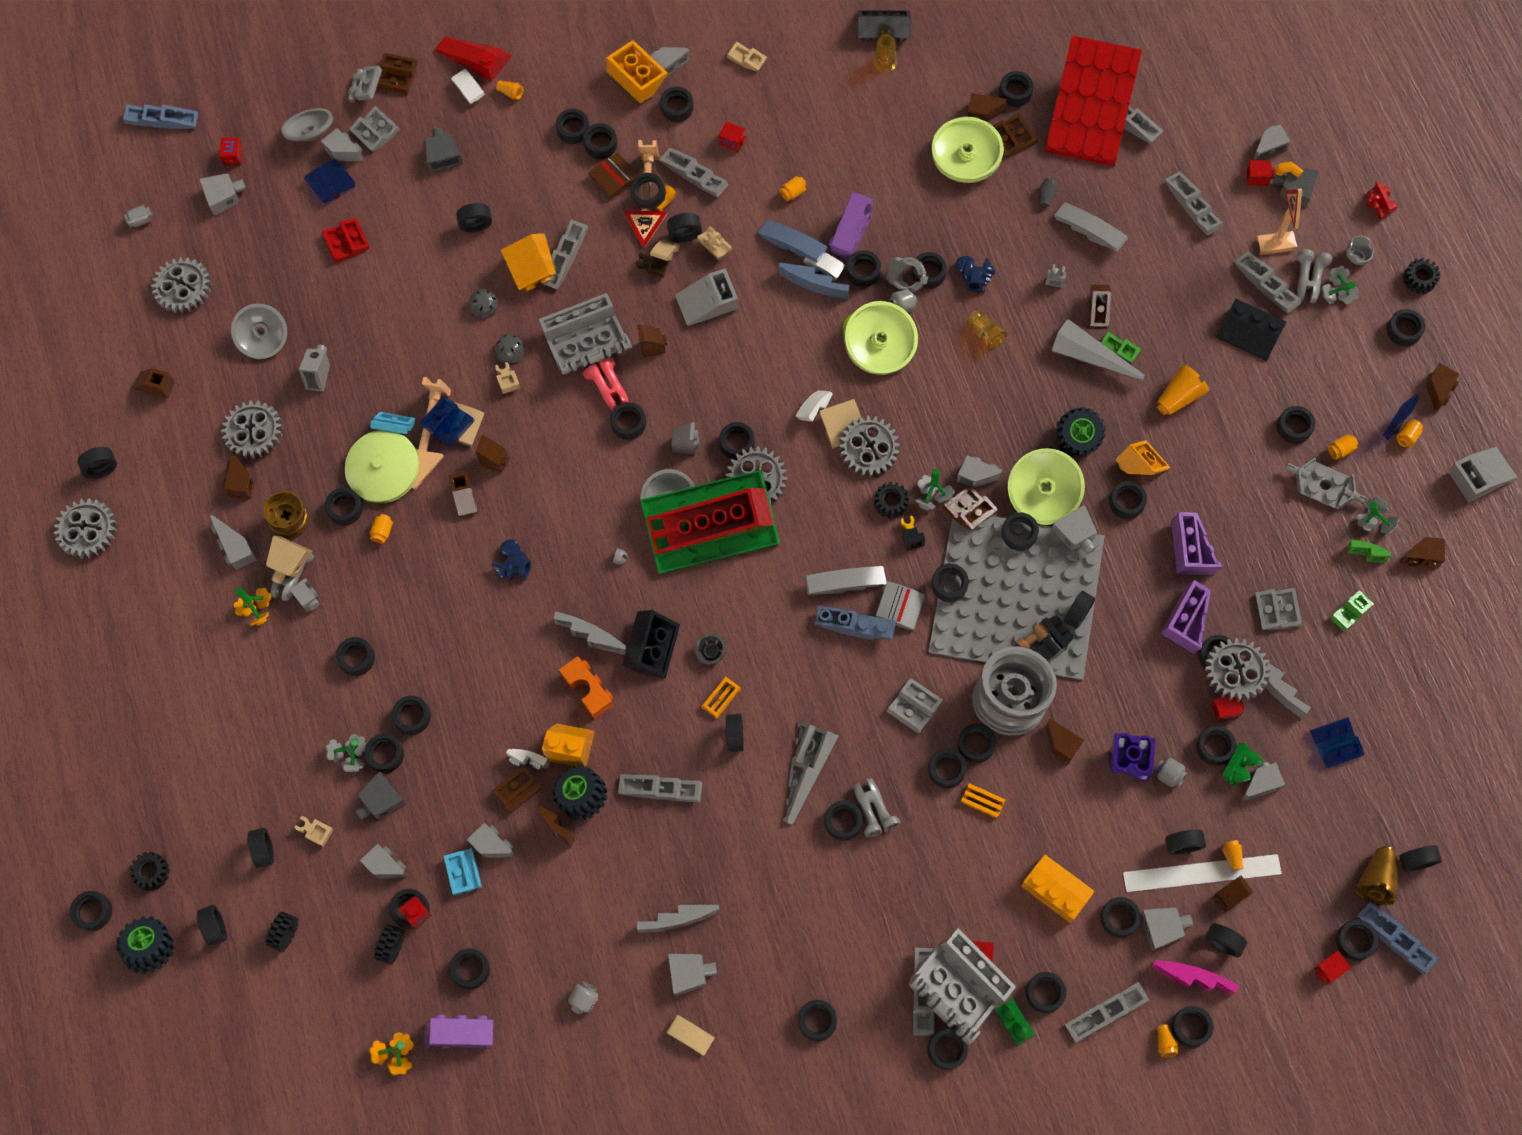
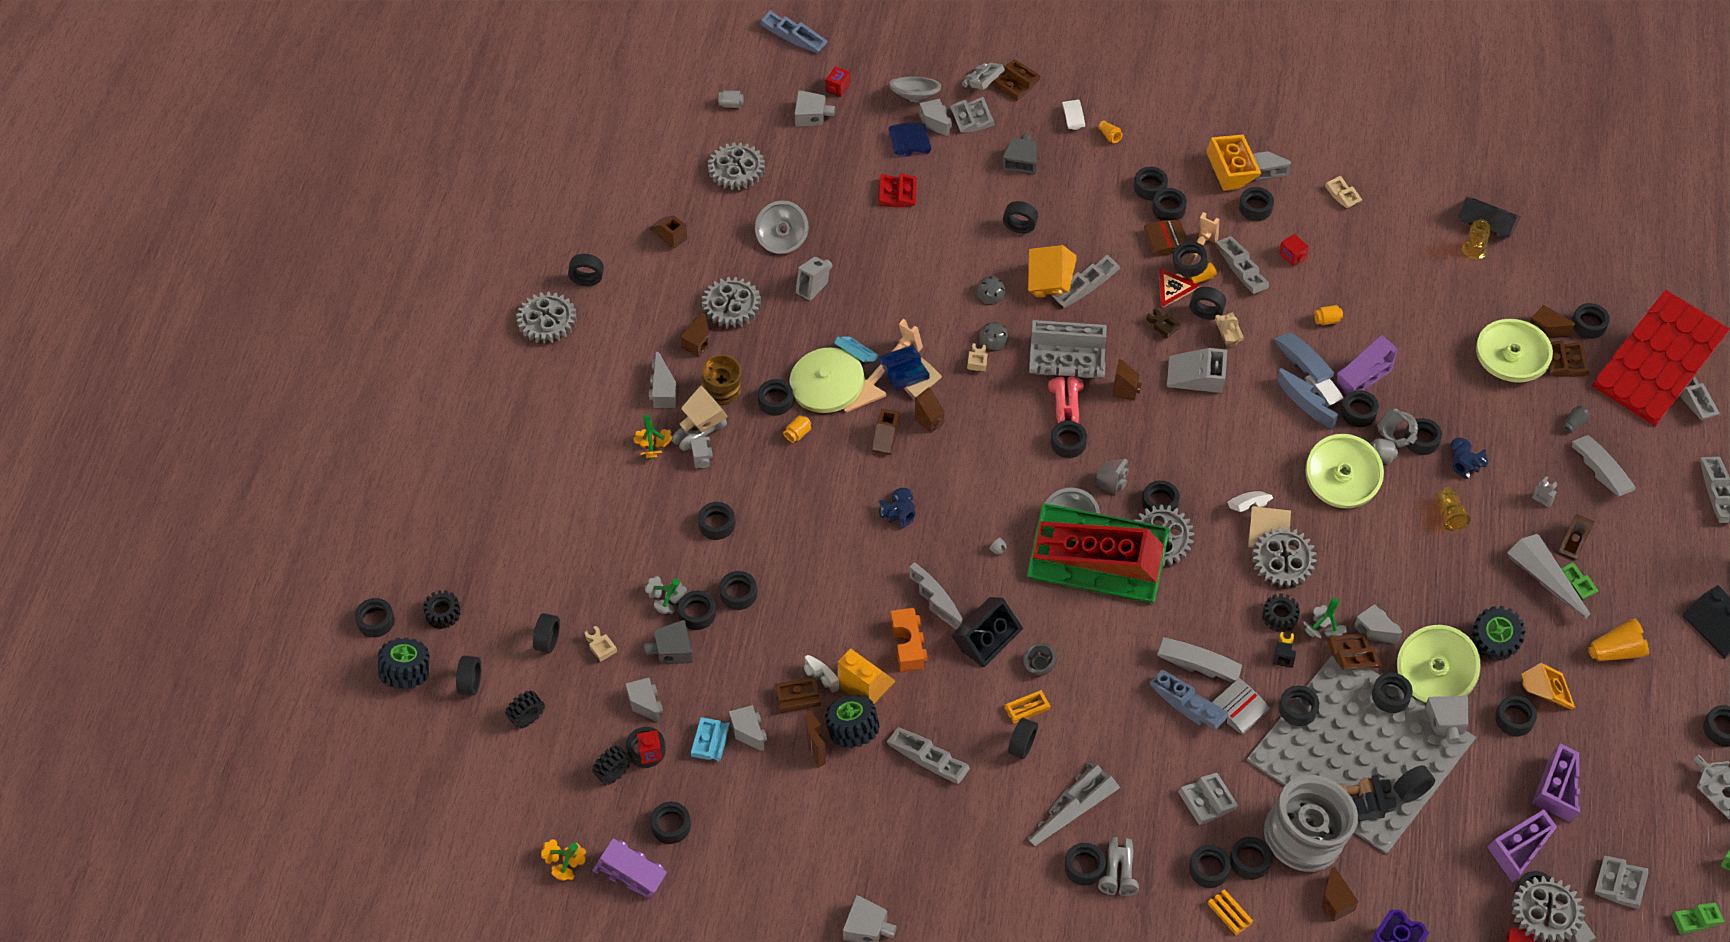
camera: 25 degrees right, 15 degrees down
(477, 57) = (1094, 96): red wedge -> none
(583, 998) = (758, 896): light grey head -> none
(664, 249) = (1179, 314): tan slope -> none
(686, 916) = (890, 874): light grey slope -> none

